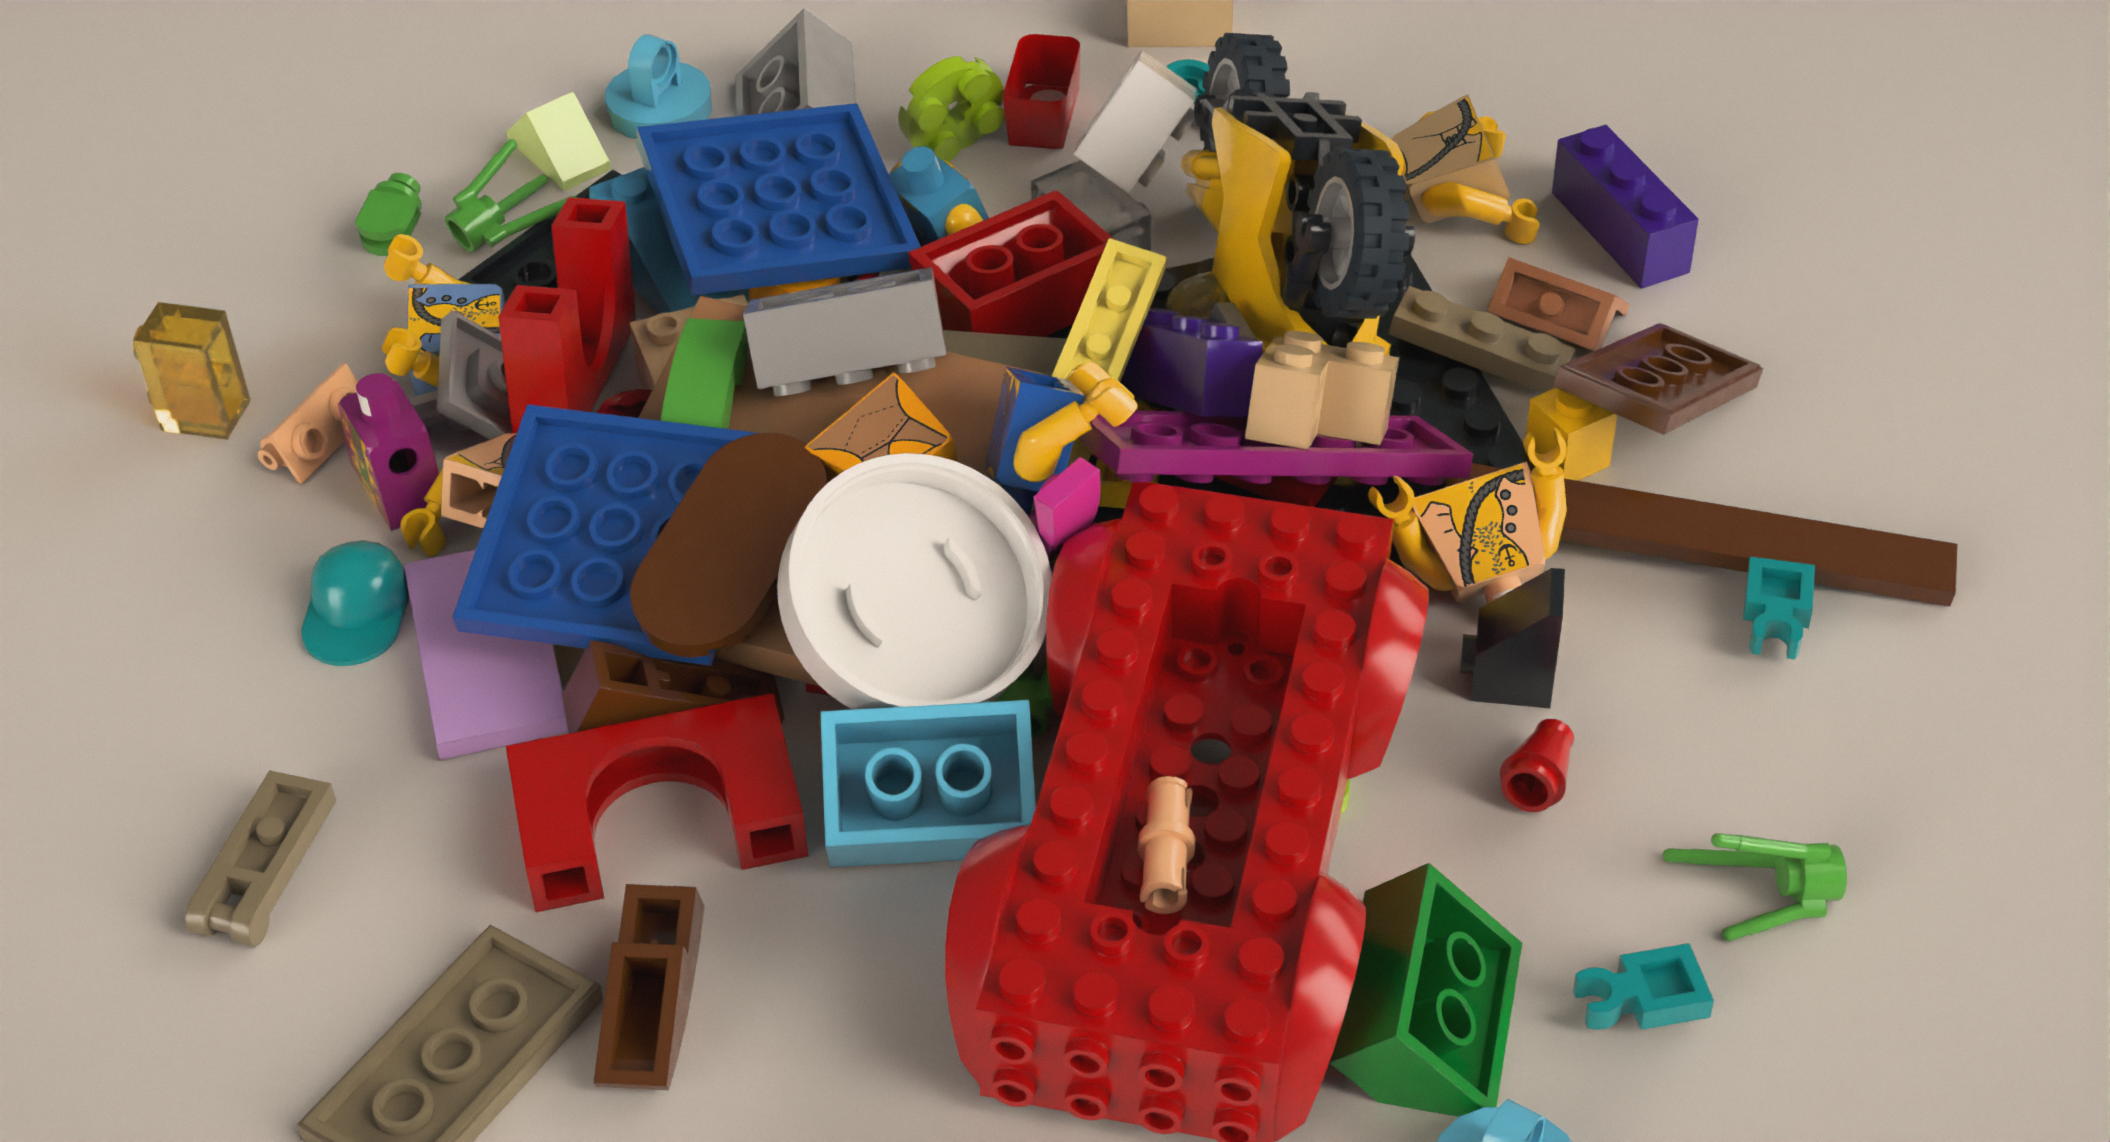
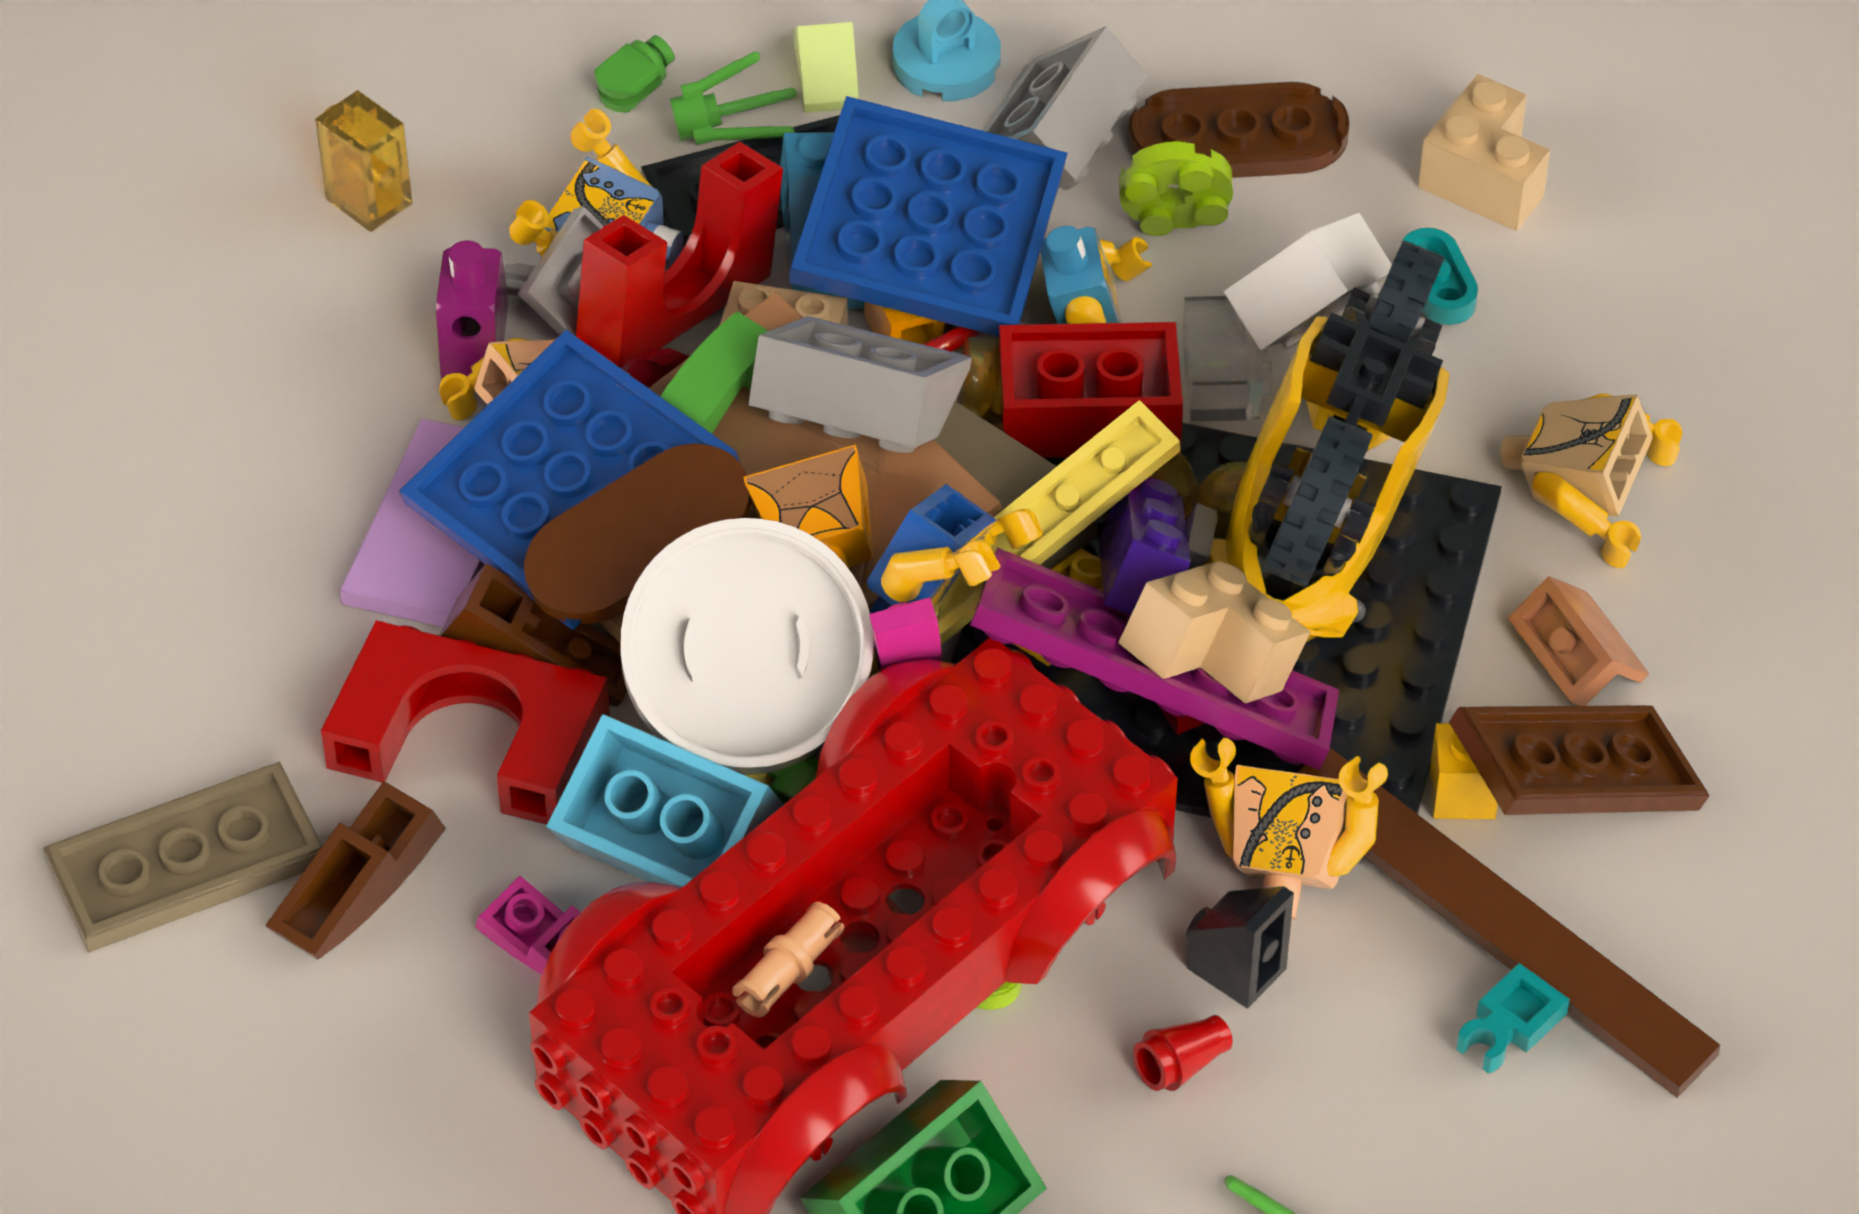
camera: 30 degrees right, 5 degrees up
(260, 857) = (153, 620): dark tan plate -> none
(311, 430) = (417, 262): light nougat hinge -> none
(355, 603) = (365, 435): teal cap -> none
(876, 959) = (525, 923): none -> dark pink slope
(971, 33) = (1253, 126): none -> reddish brown tile
(1041, 62) = (1294, 165): red piece -> none
(1479, 339) = (1464, 640): dark tan plate -> none
(1624, 206) = (1718, 574): dark purple brick -> none

